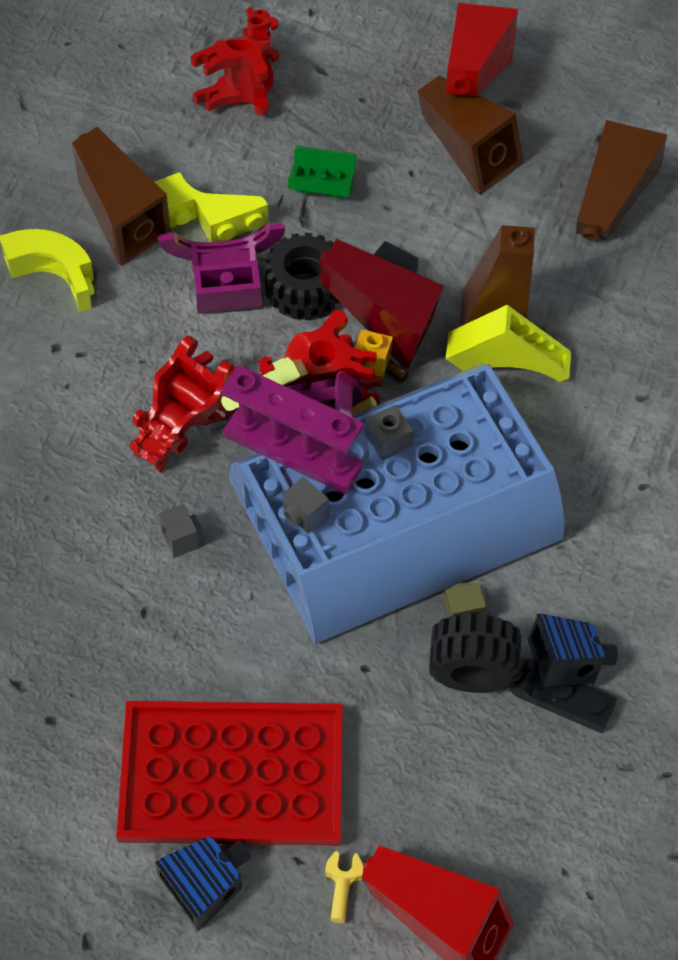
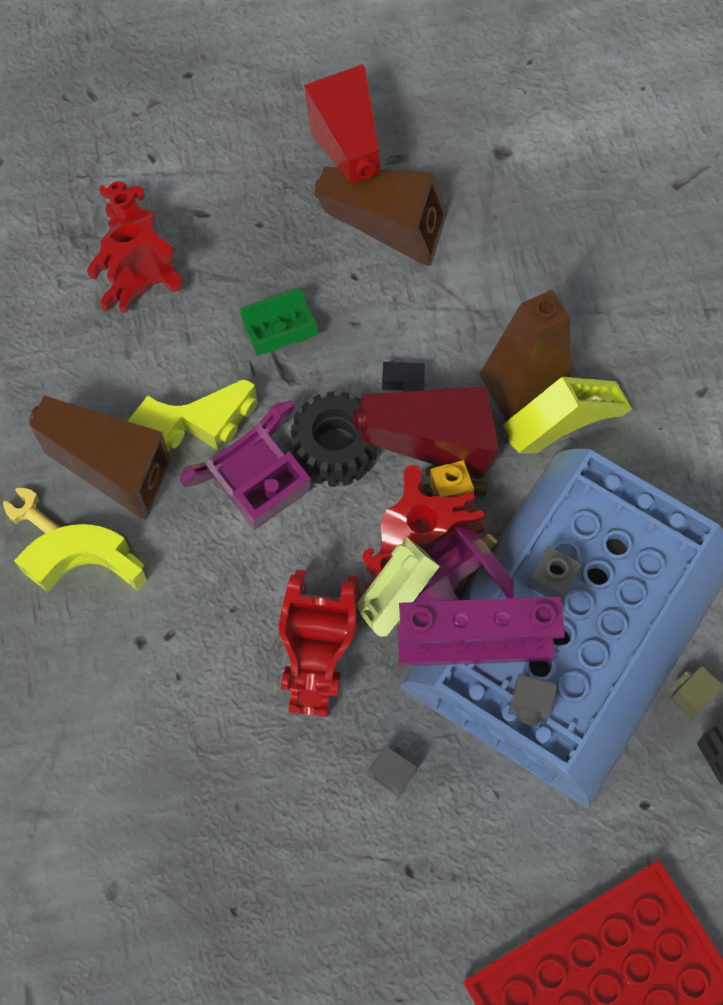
camera: 30 degrees left, 10 degrees up
(37, 213) = (29, 511): none -> light yellow bar
(620, 173) = (547, 185): reddish brown slope -> none

